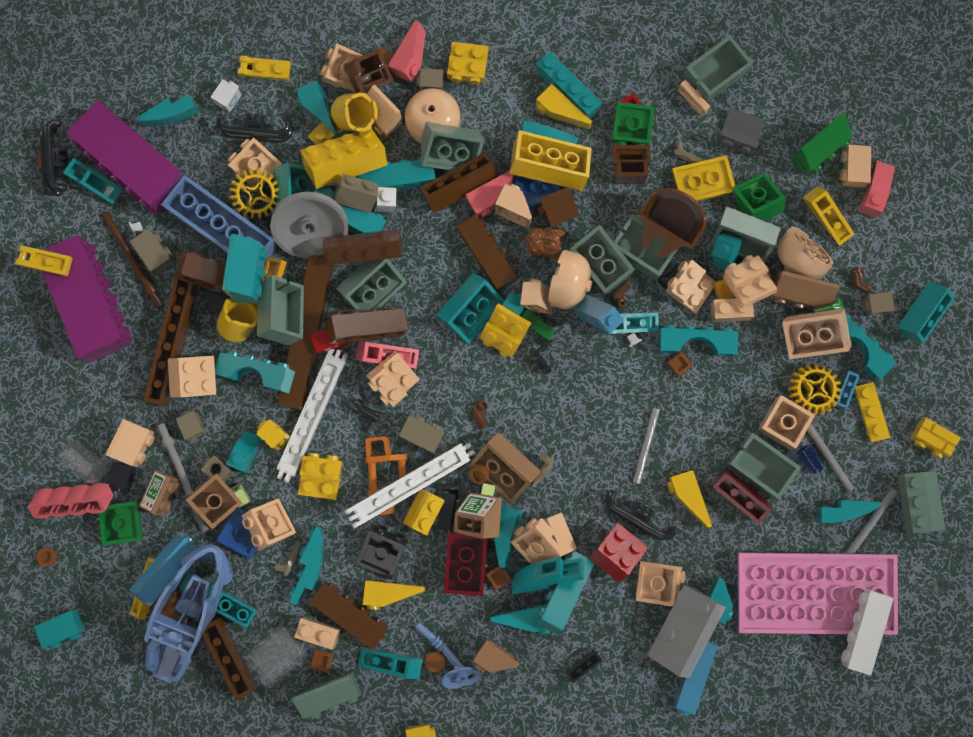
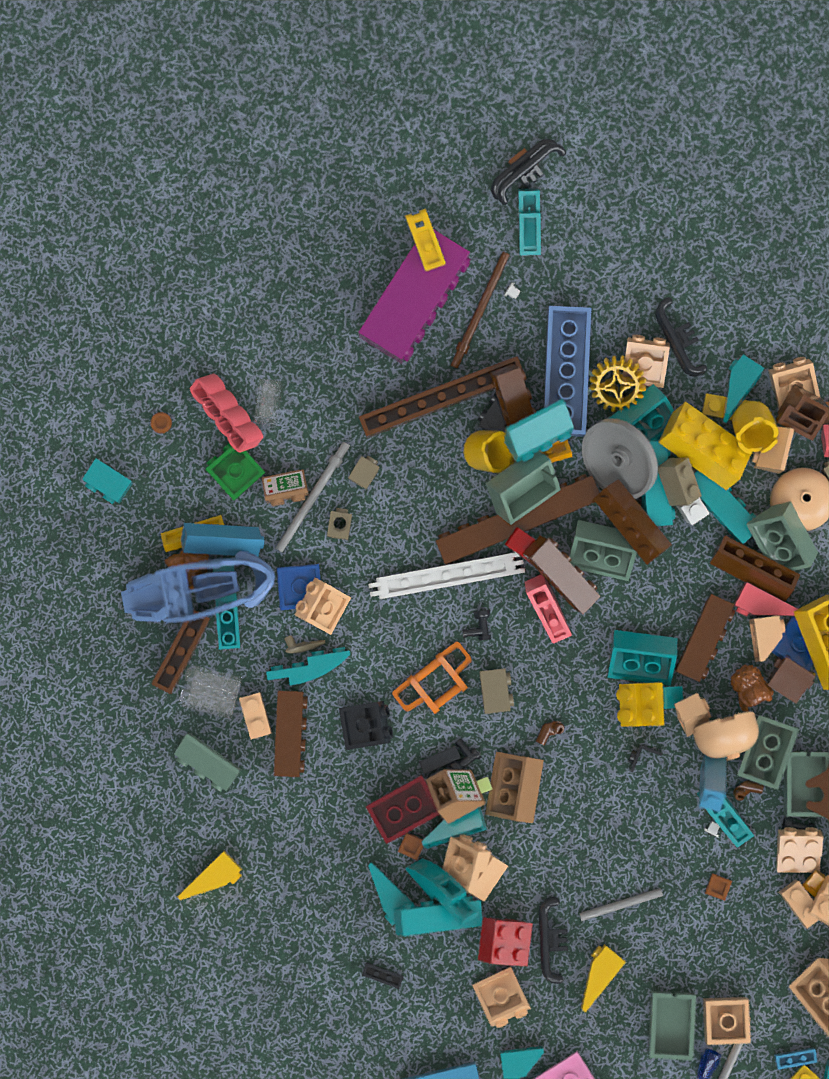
camera: 50 degrees right, 5 degrees up
(121, 476) = (276, 441): black brick -> none
(125, 156) = (572, 241): magenta brick -> none
(130, 443) = (312, 431): light nougat slope -> none
(152, 252) = (499, 325): dark tan brick -> none
(168, 112) = (641, 247): teal slope -> none
(191, 376) = (409, 445): light nougat brick -> none
(213, 500) = (310, 542): medium nougat slope -> none
(226, 95) = (694, 290): white brick -> none
(241, 494) = (330, 560): yellowish green piece -> none
(244, 452) = (373, 538): teal slope -> none
(264, 68) = (744, 306): yellow plate -> none
(273, 434) = (405, 555): yellow brick -> none
(274, 377) = (458, 522): teal arch -> none
(320, 476) = (395, 622): yellow plate -> none
(321, 660) = (232, 735): dark orange tile -> none
(384, 593) = (329, 752): yellow slope -> none
(390, 663) = (271, 798): teal slope -> none
(392, 379) = (528, 629): light nougat plate -> none
(409, 484) = (443, 710): white hinge -> none
(423, 511) = (426, 739): yellow brick -> none
(435, 662) = (298, 838): dark orange tile -> none
(459, 671) = (304, 867): medium blue dish -> none
(479, 474) = (493, 767): dark orange tile -> none
(494, 658) = (337, 889): medium nougat slope -> none
(538, 325) = (667, 731): green piece -> none
(545, 469) = (537, 825): dark tan bar -> none
(686, 631) = (474, 1048): light grey brick -> none
(722, 342) = (764, 914): teal arch -> none
(742, 495) = (631, 1022): dark red brick -> none
(809, 384) = (795, 1030): yellow gear -> none

